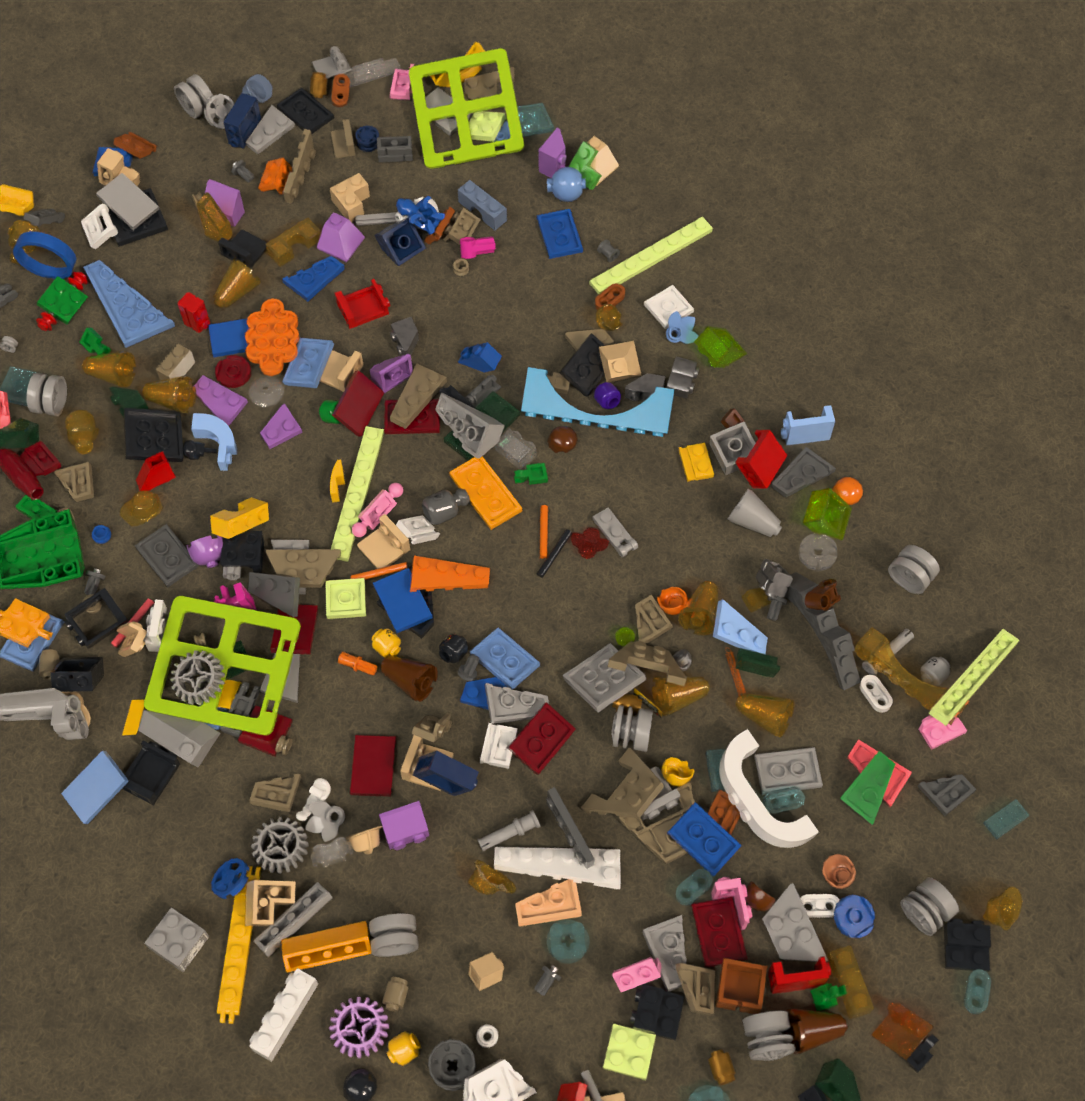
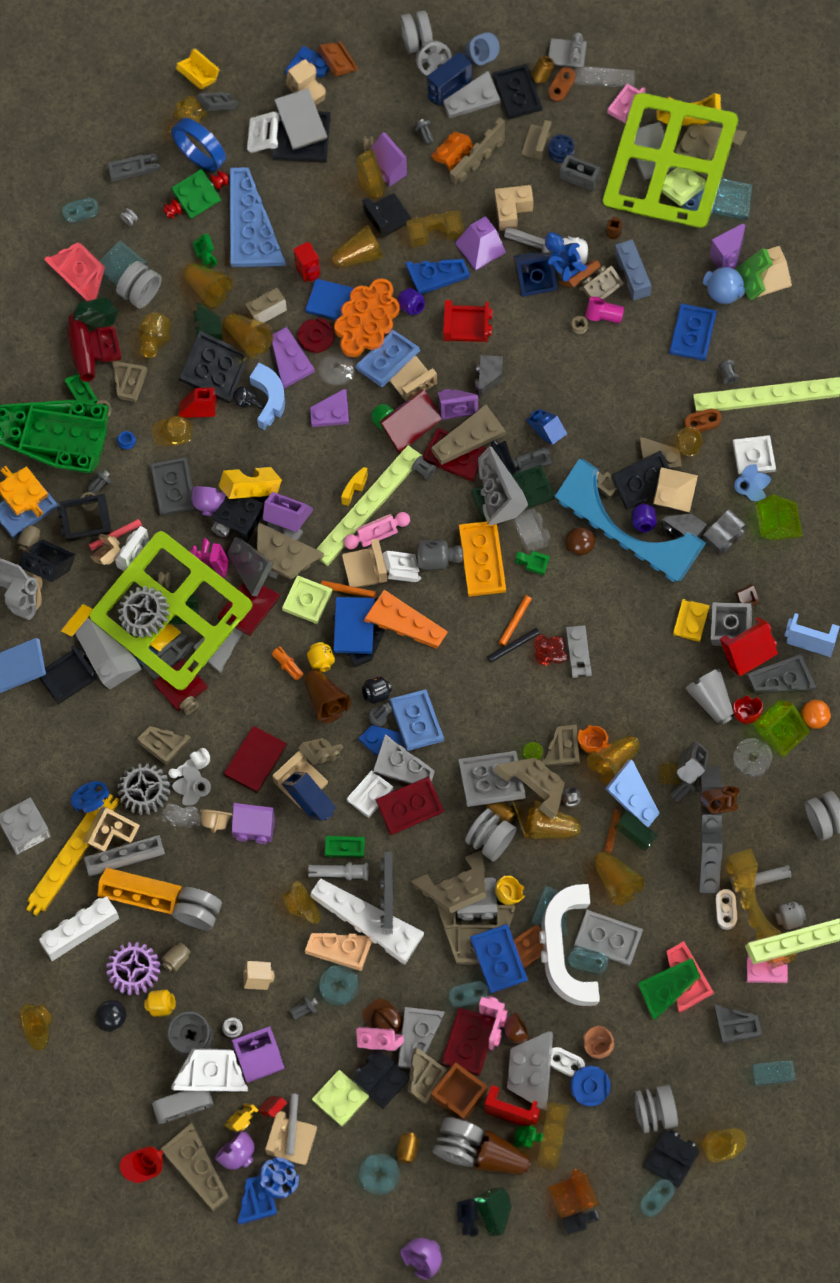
camera: 30 degrees right, 5 degrees up
(286, 529) = (285, 512): none -> medium lavender slope
(304, 308) = (411, 301): none -> dark purple head
(389, 438) = (419, 463): none -> dark grey bush
(447, 180) = (614, 228): none -> reddish brown piece
(502, 806) = (345, 847): none -> green plate
(528, 1050) = (258, 1054): none -> medium lavender slope
(625, 950) = (383, 1016): none -> reddish brown piece
(791, 513) = (747, 709): none -> red hair

